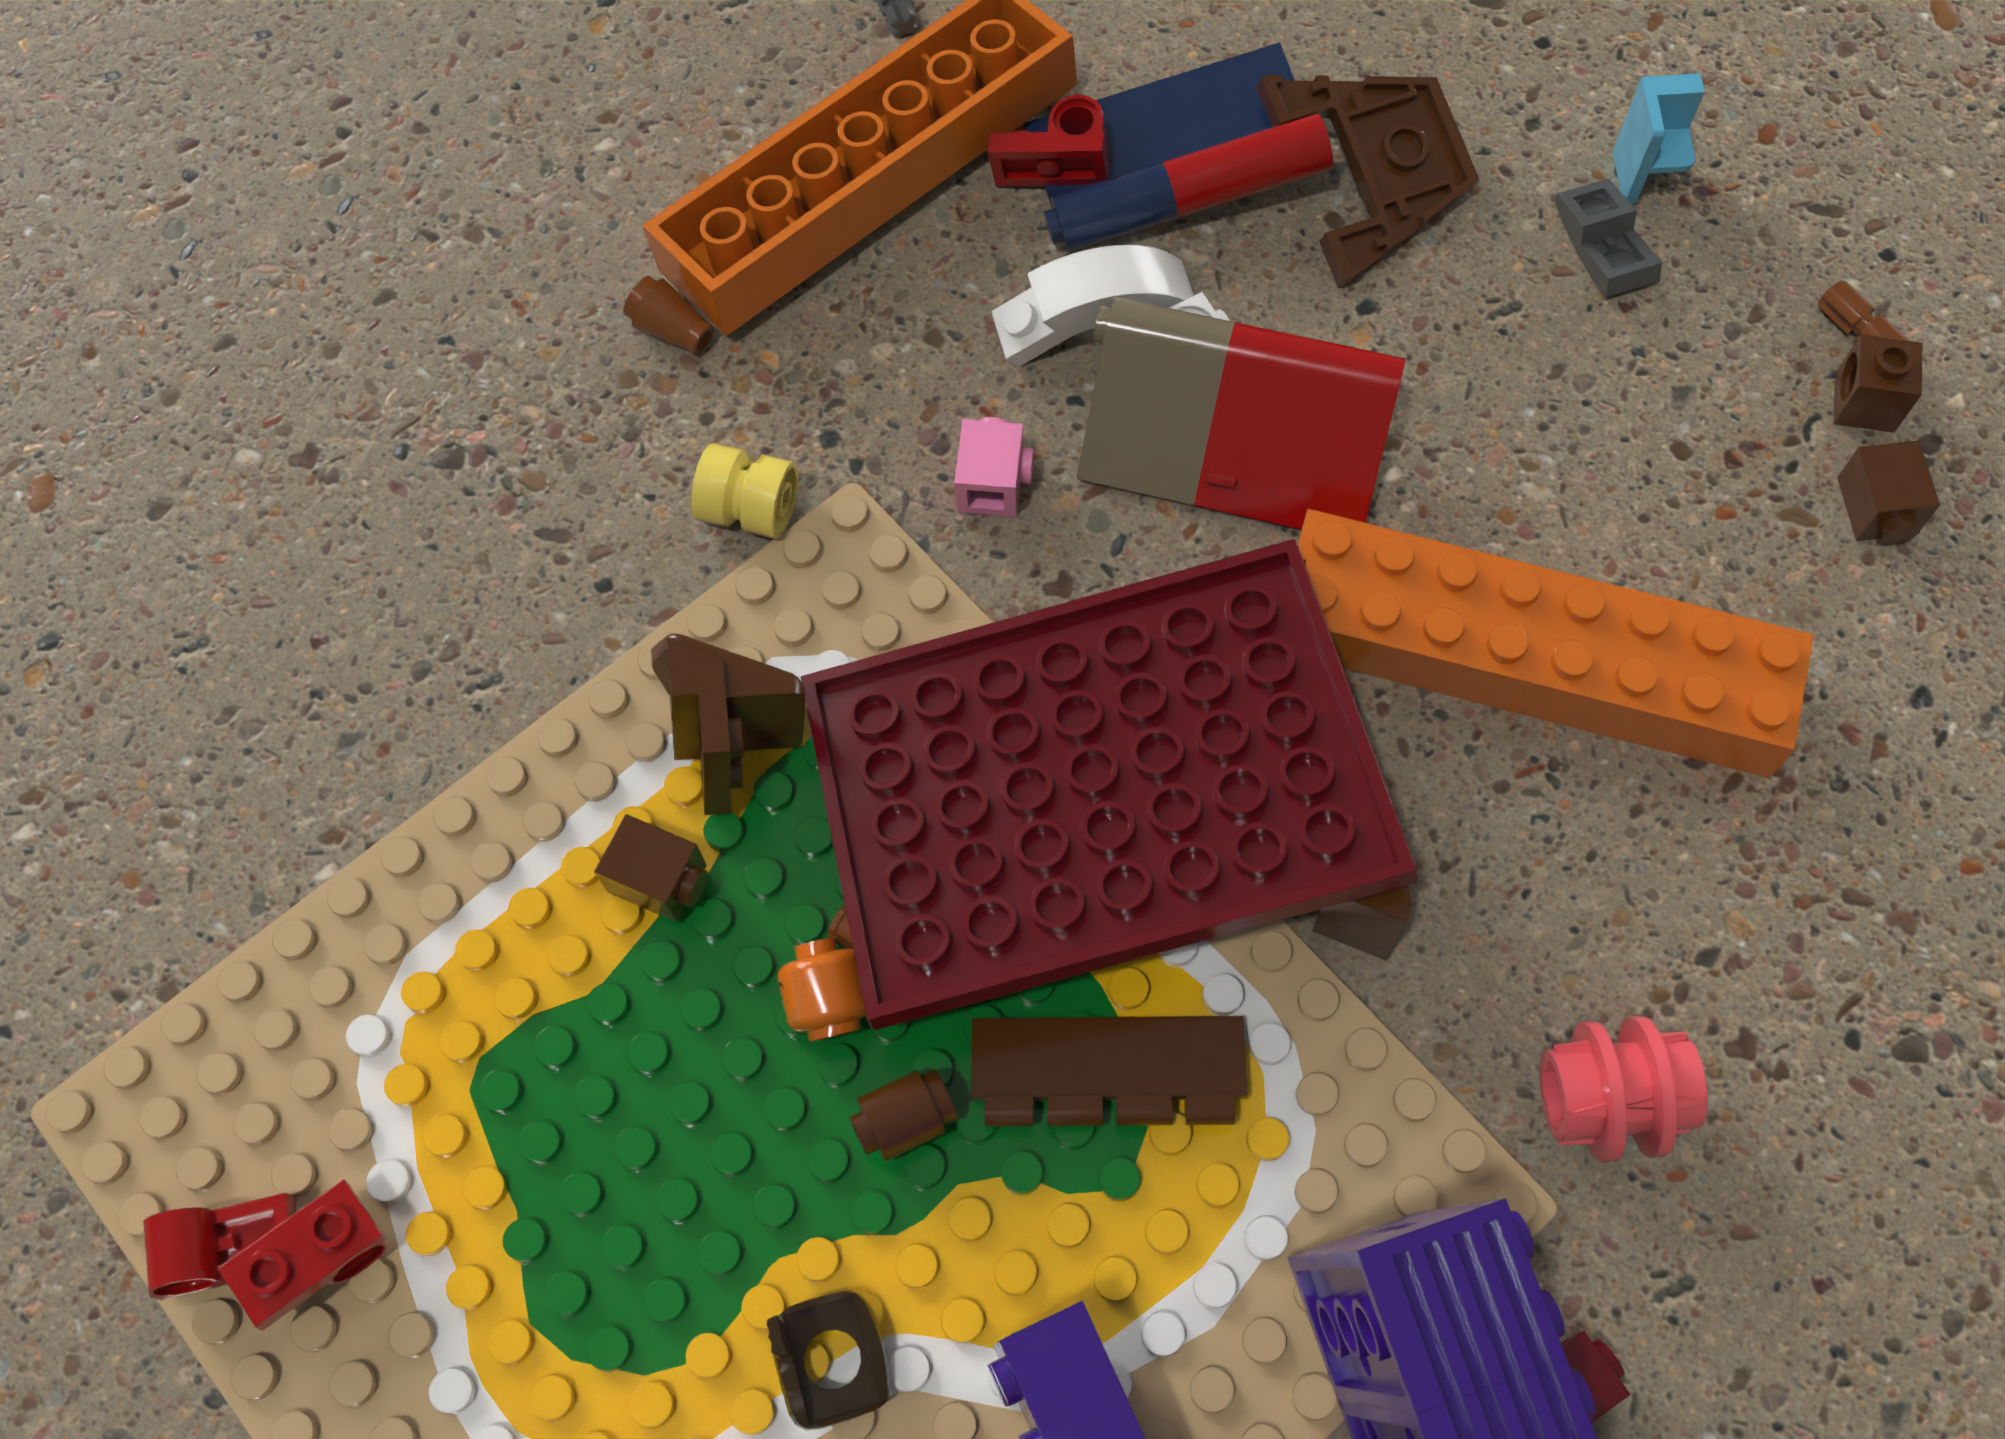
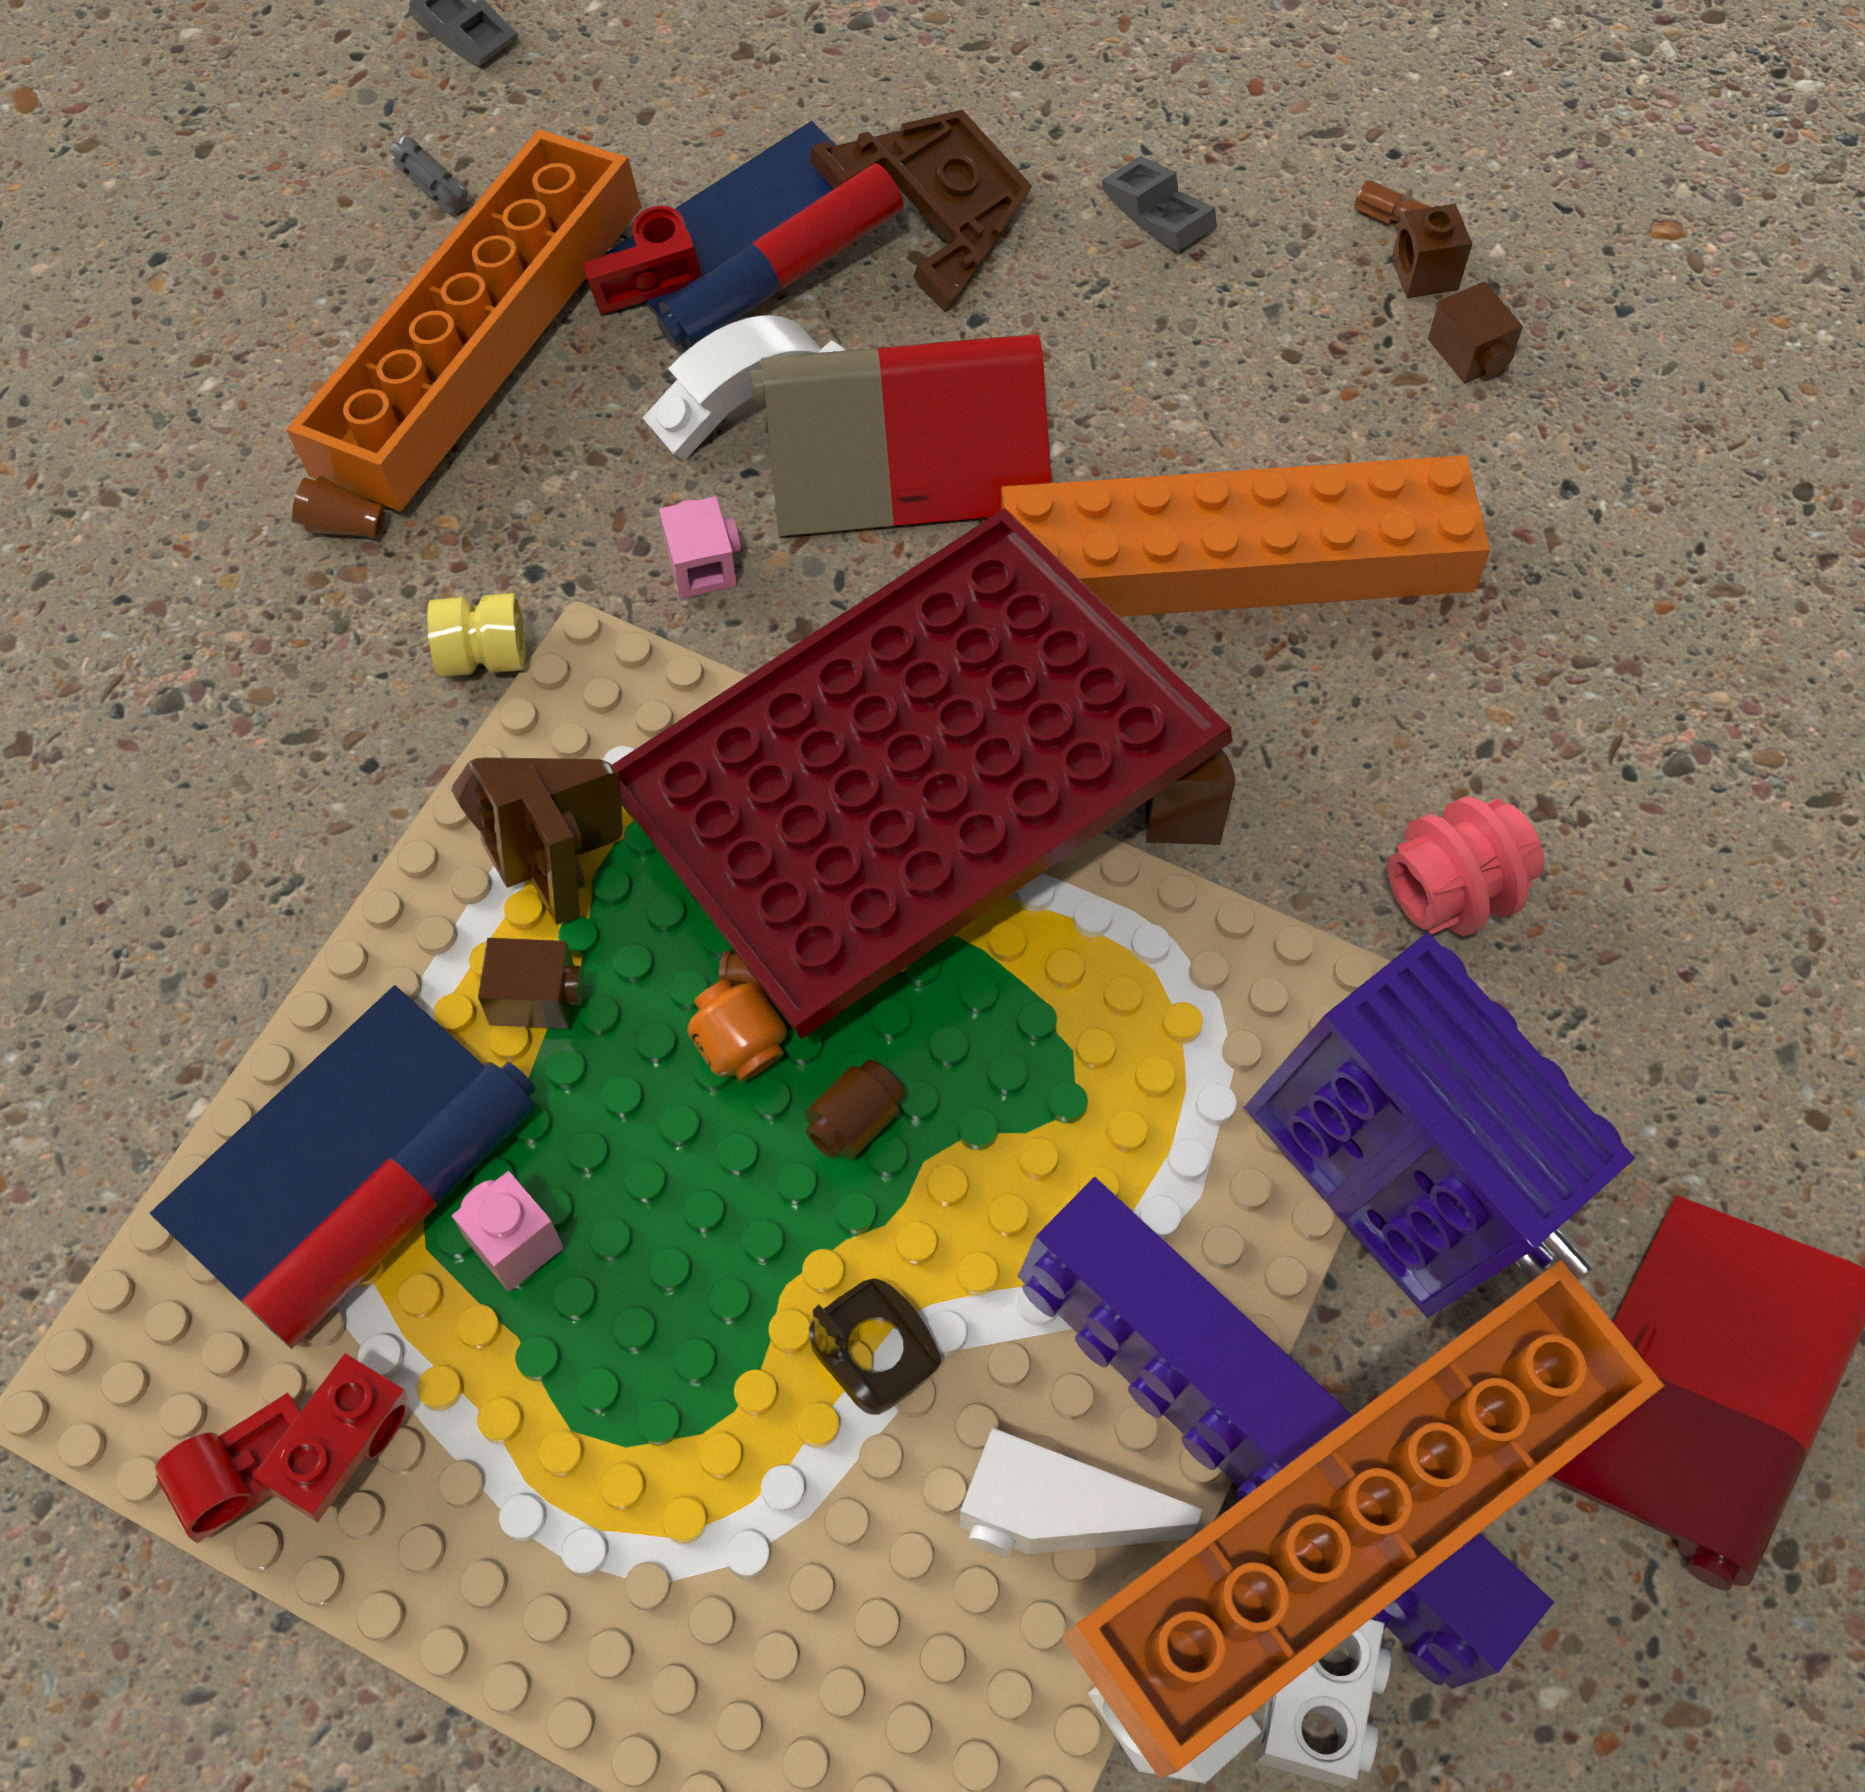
camera: 25 degrees left, 5 degrees down
(422, 985) = (343, 1164): none -> dark blue door
(535, 1111) = (507, 1230): none -> bright pink brick
(1108, 1058) = (1004, 1008): reddish brown windscreen -> none
(1657, 130) = (1167, 100): medium azure panel -> none

